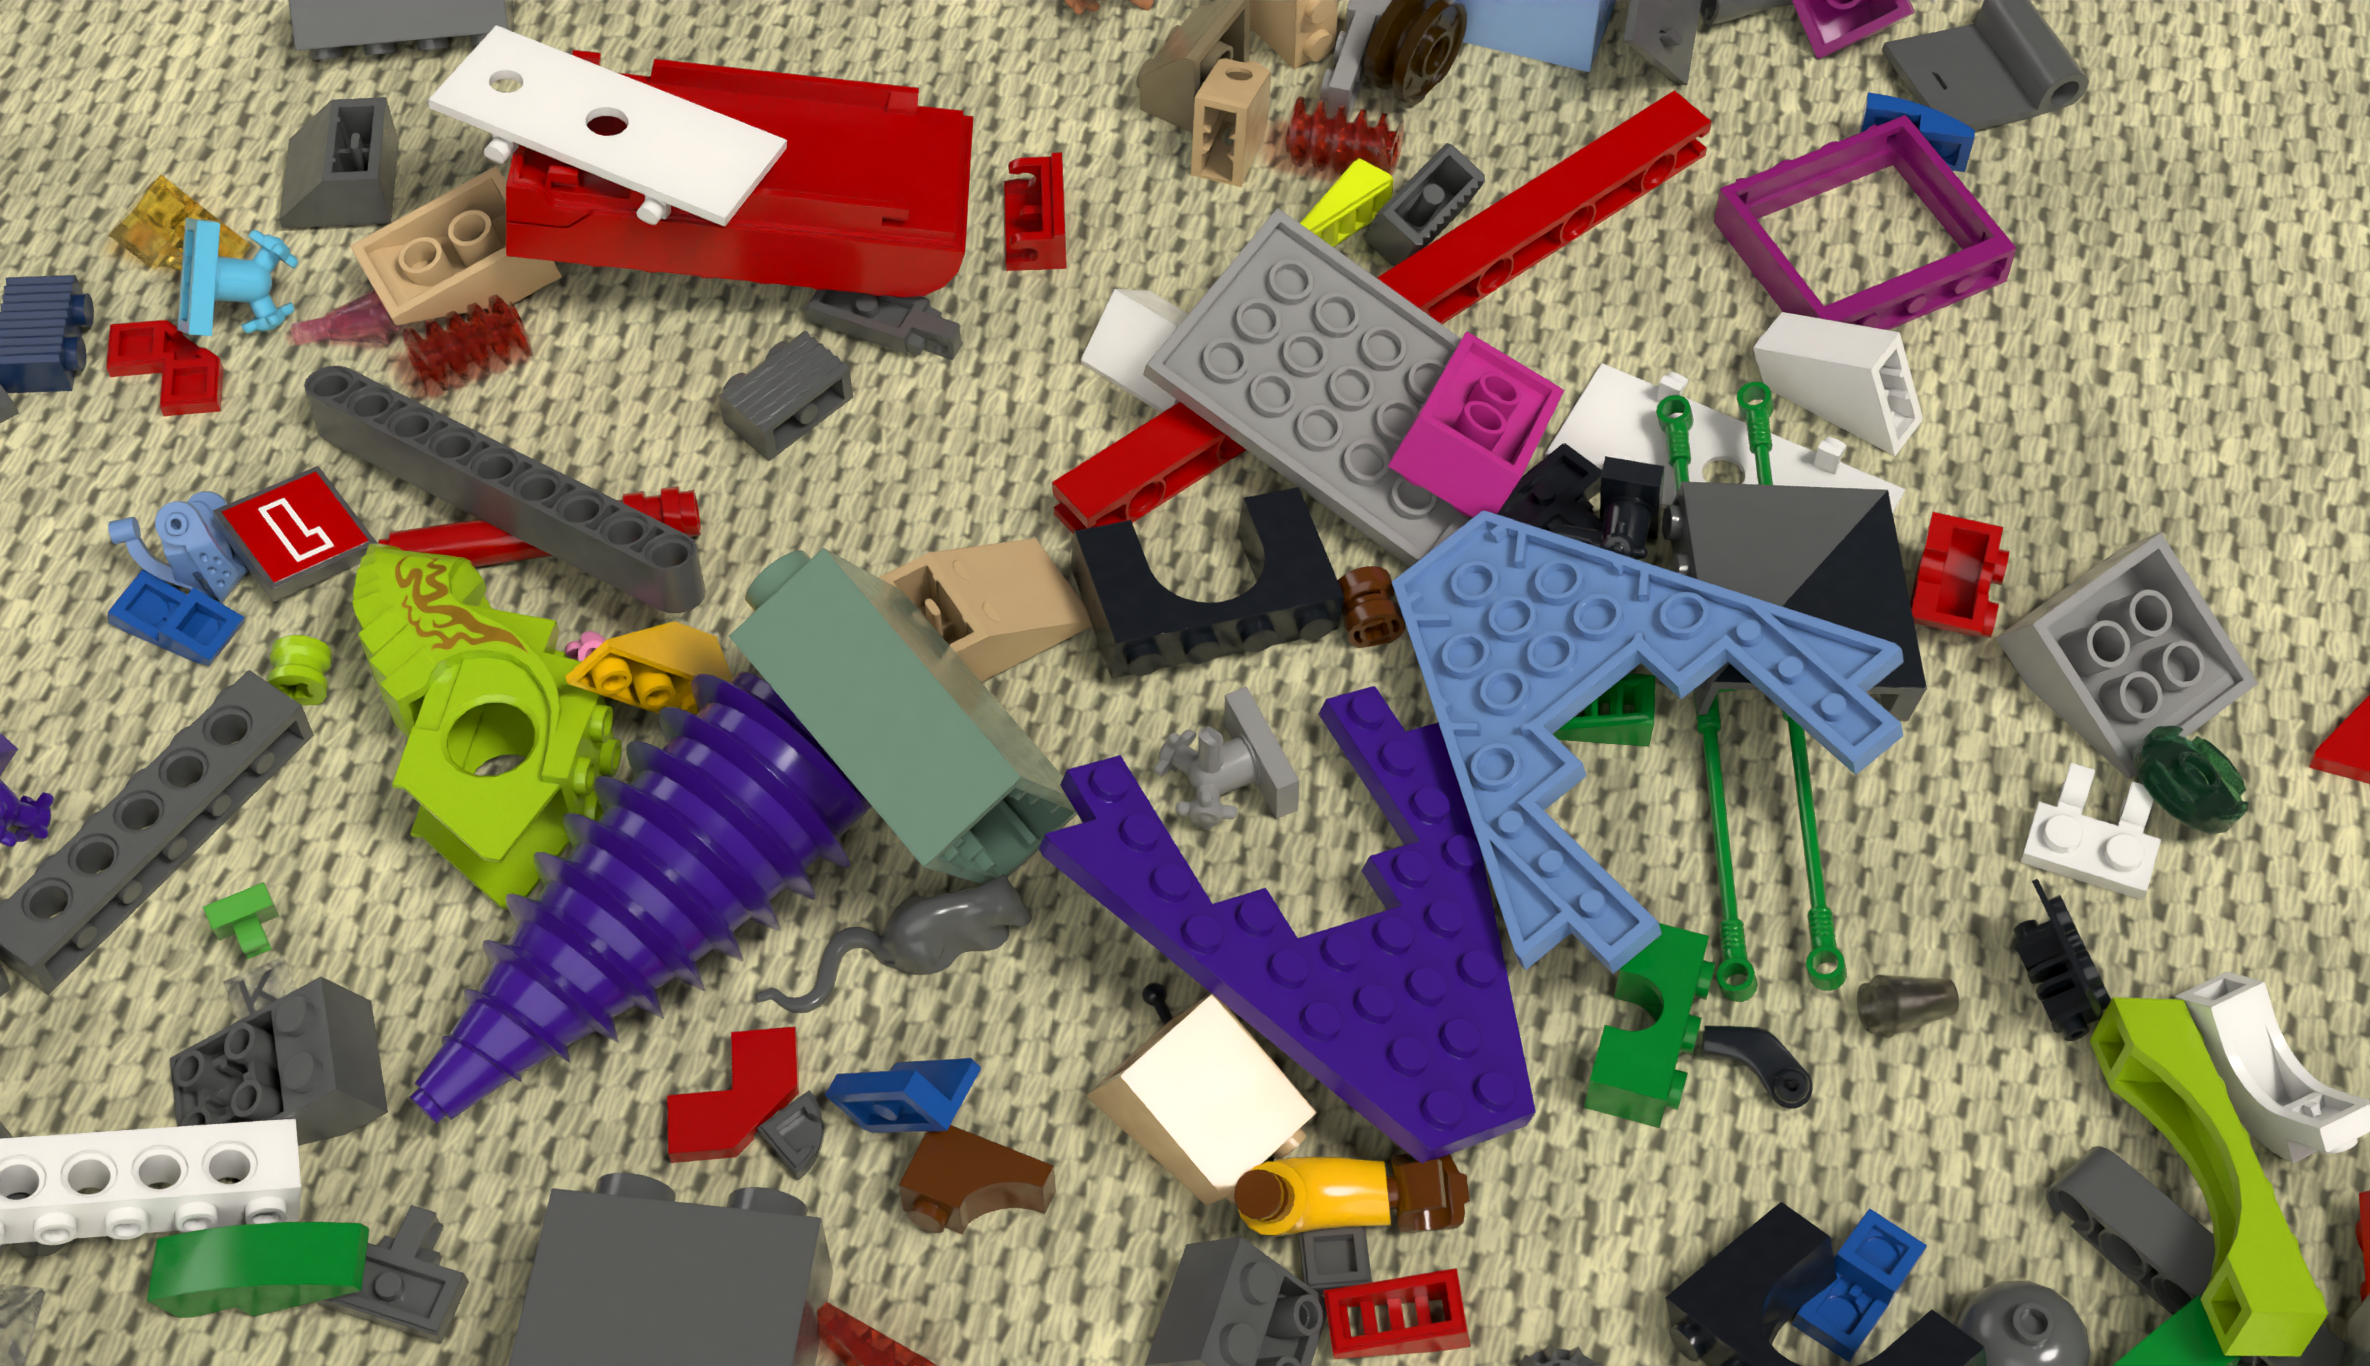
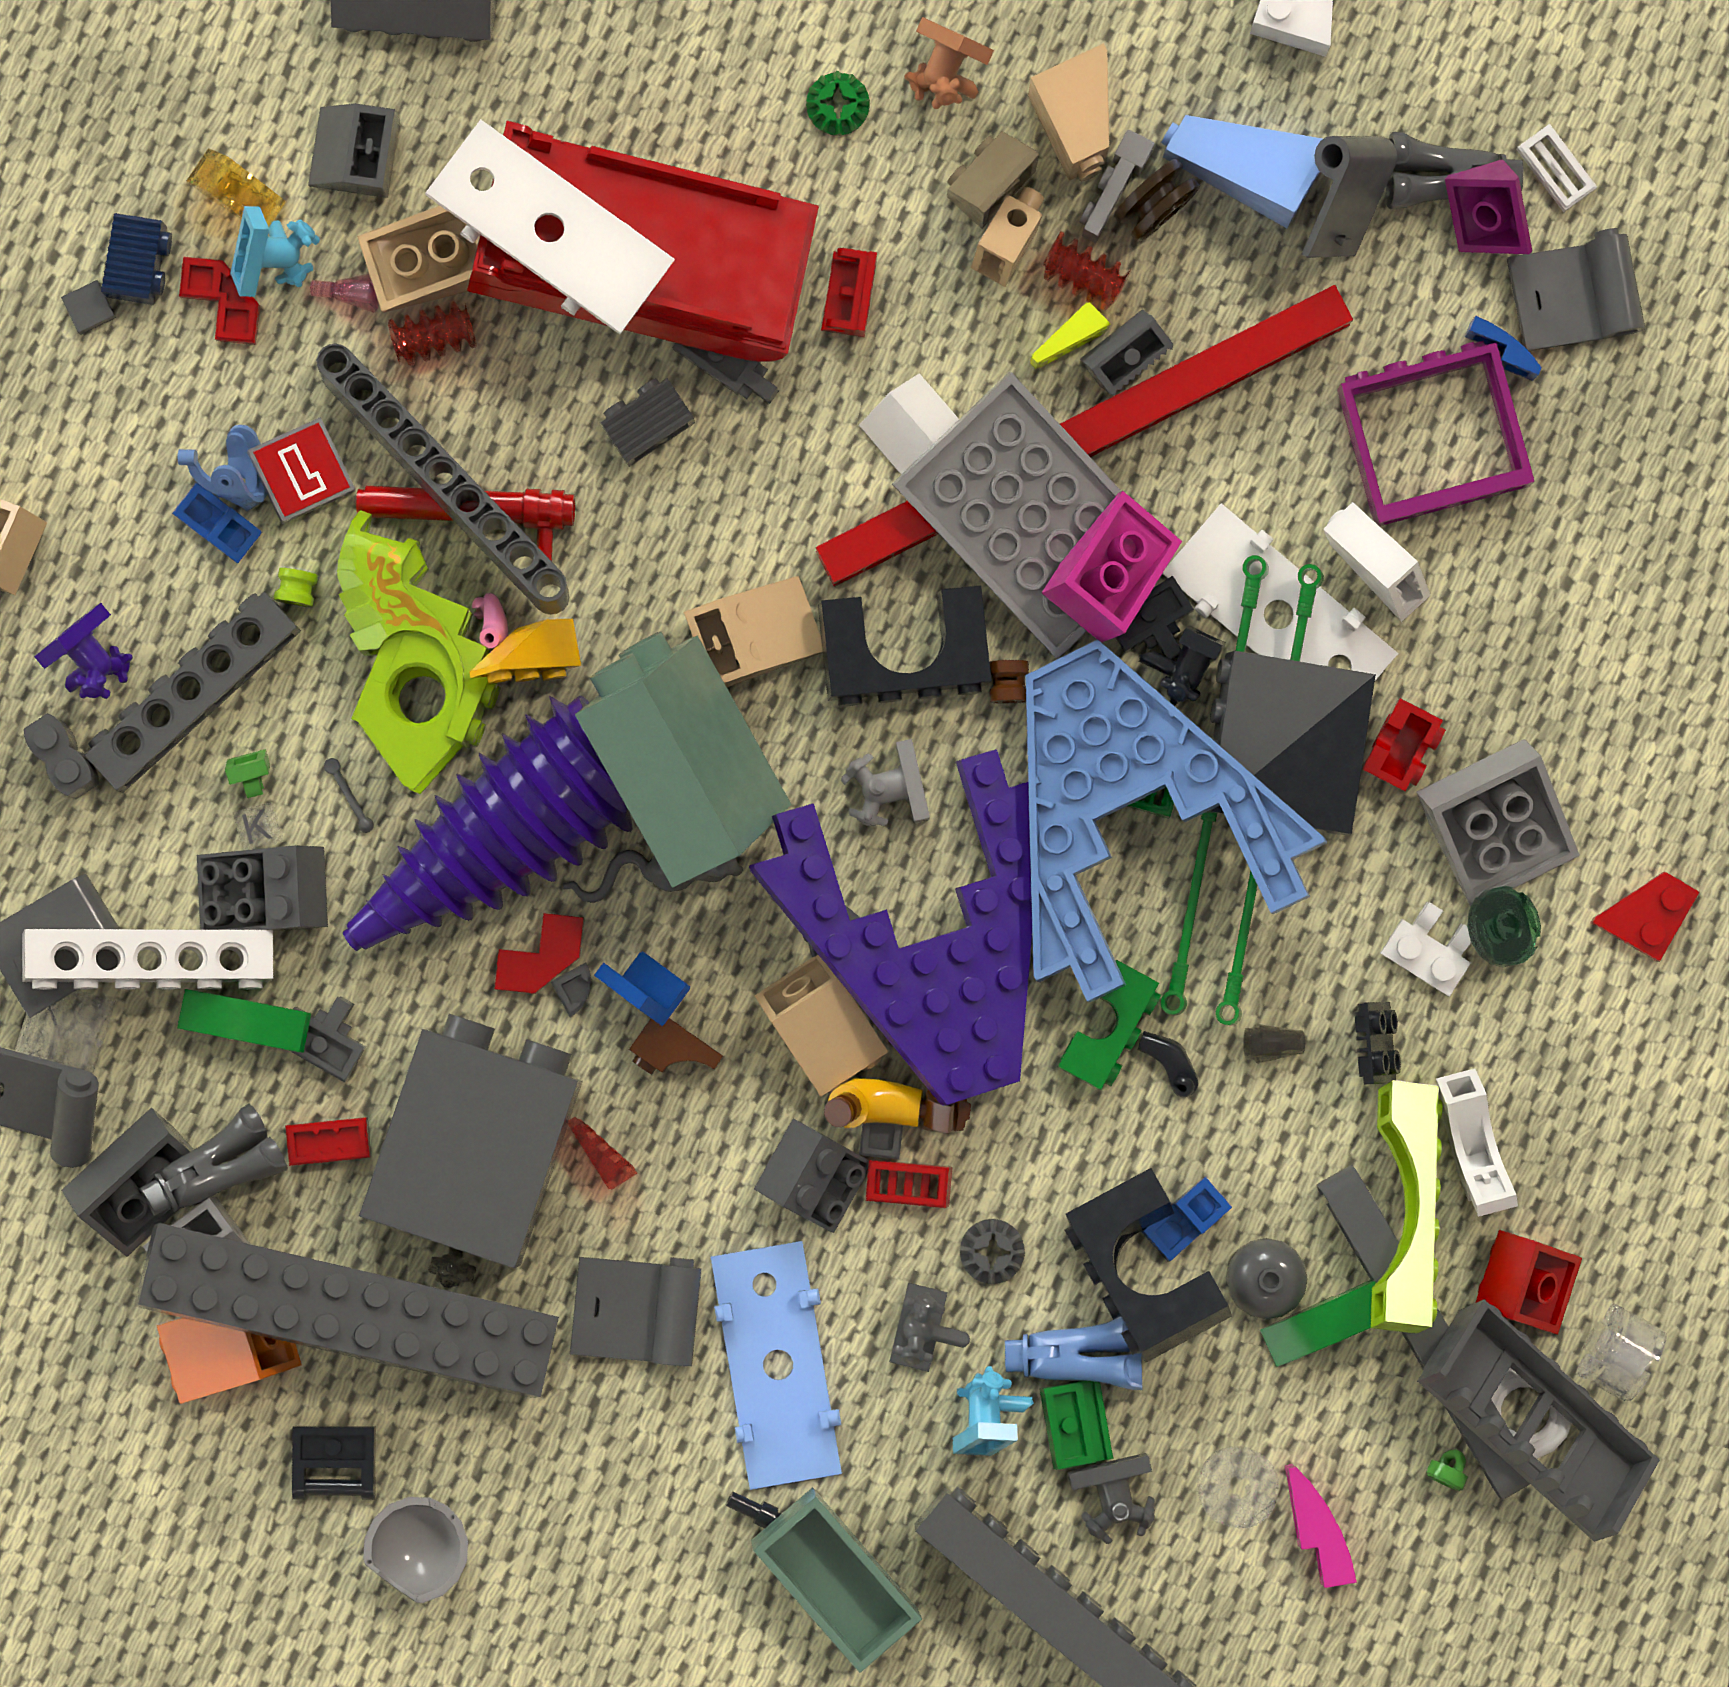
camera: 10 degrees right, 30 degrees up
(377, 900) = (332, 767): none -> dark grey hinge
(961, 50) = (823, 115): none -> green gear

